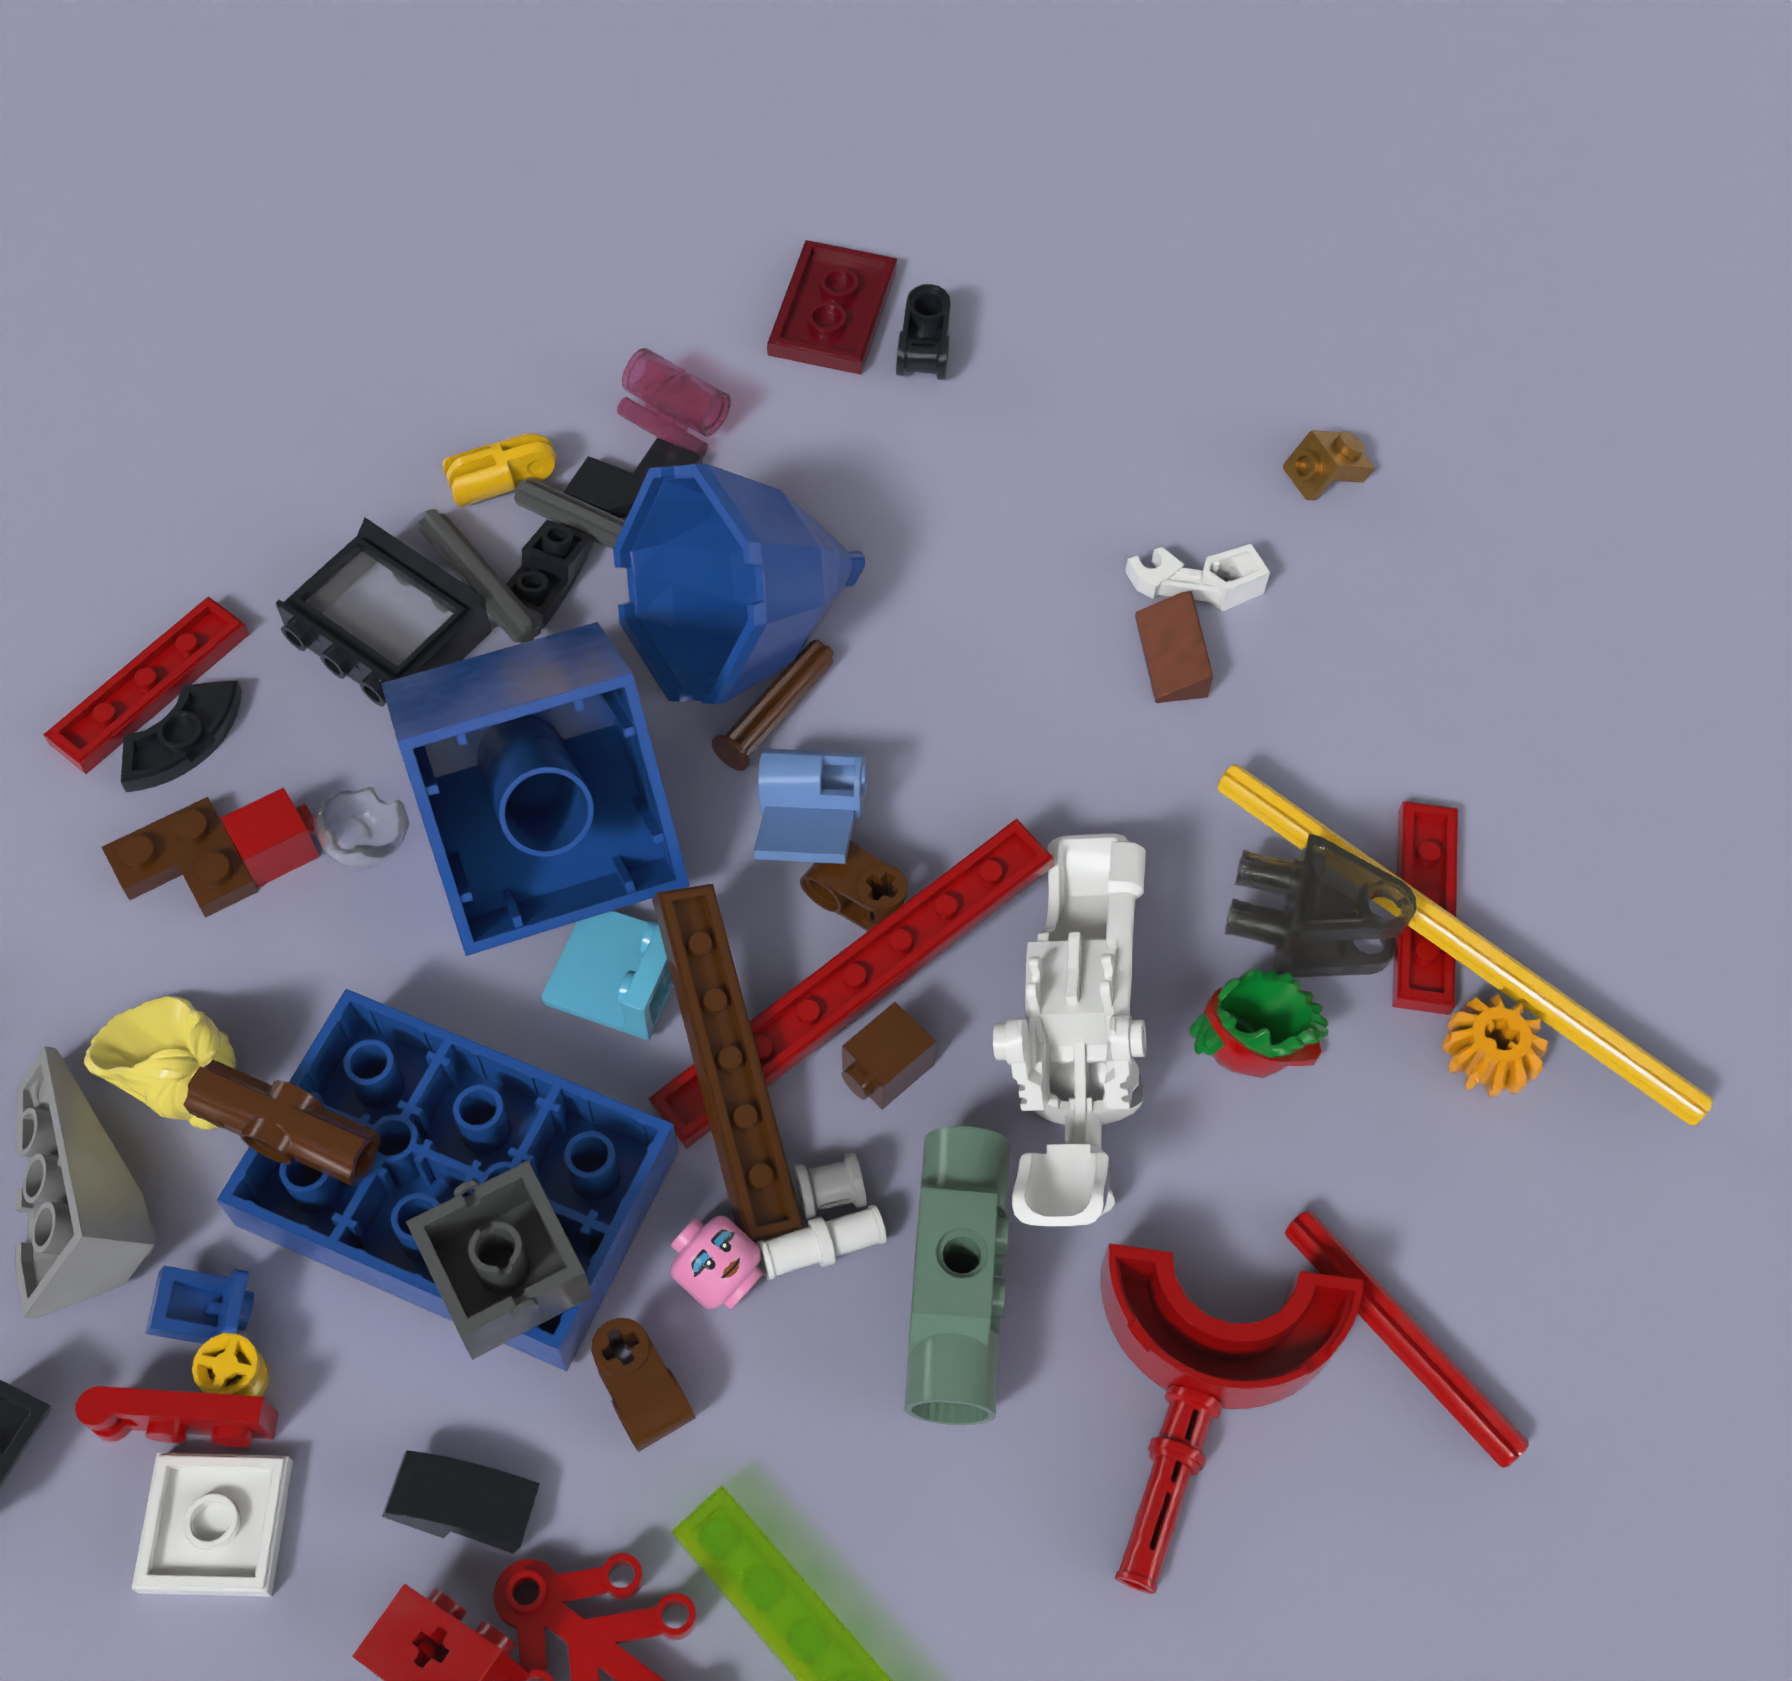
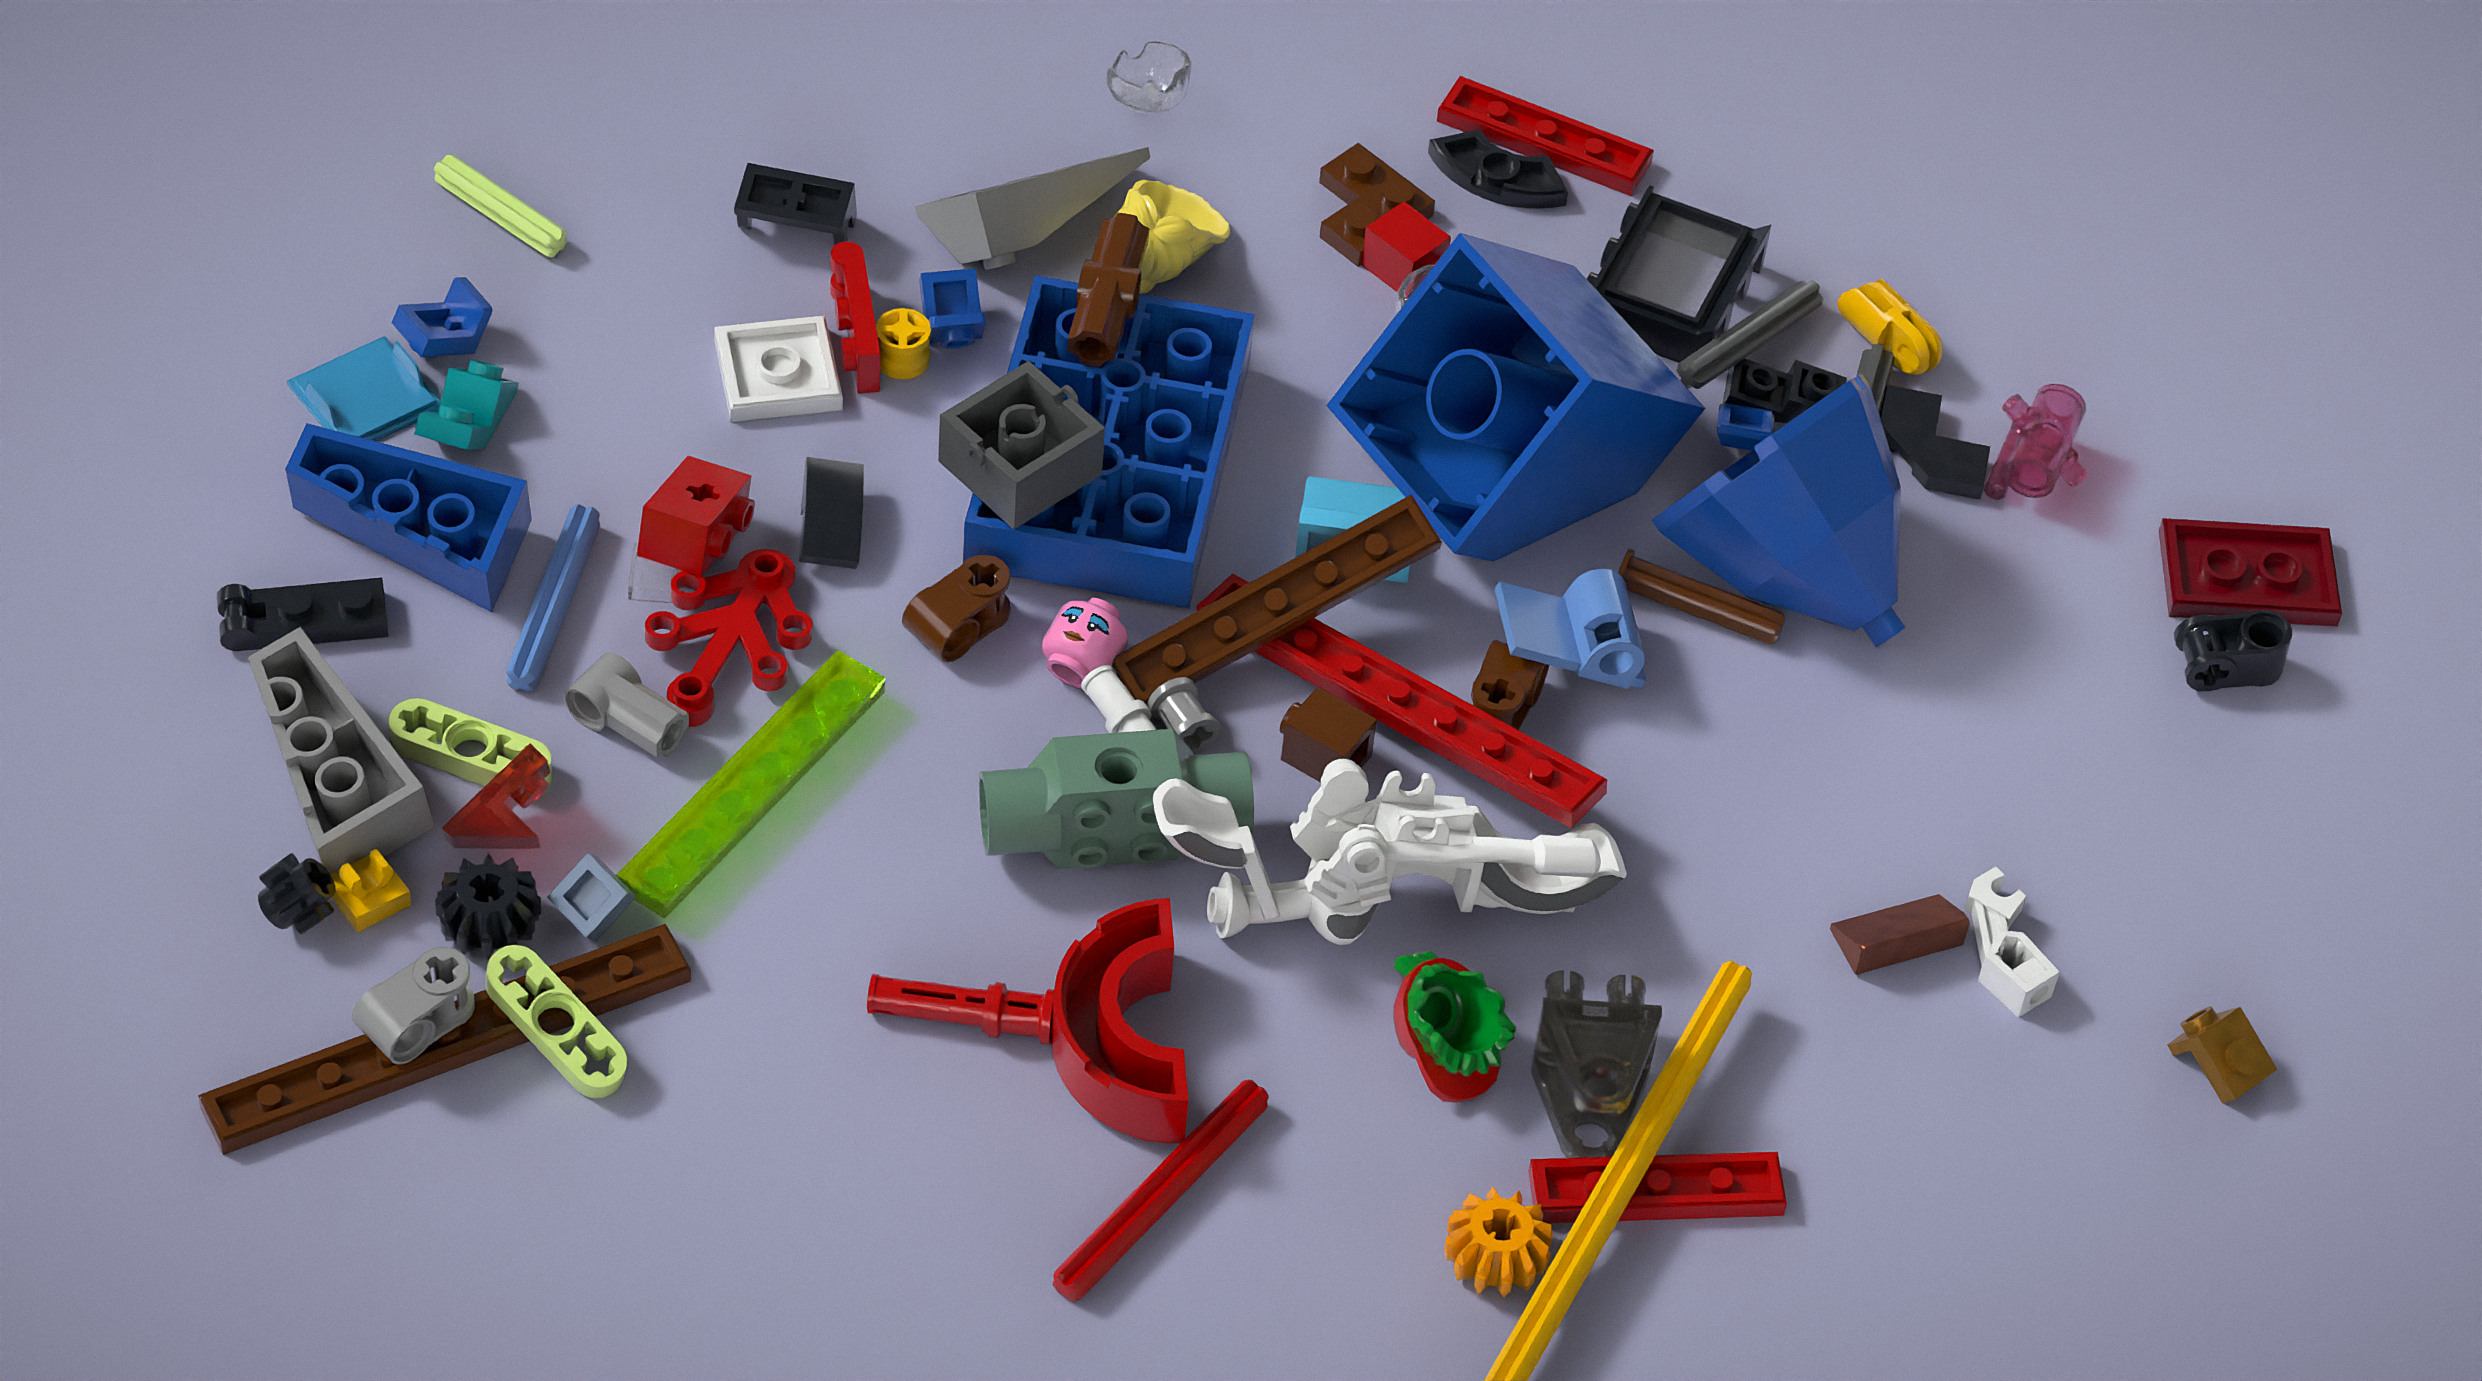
camera: 75 degrees right, 10 degrees down
(605, 603) = (1743, 426): none -> blue tile

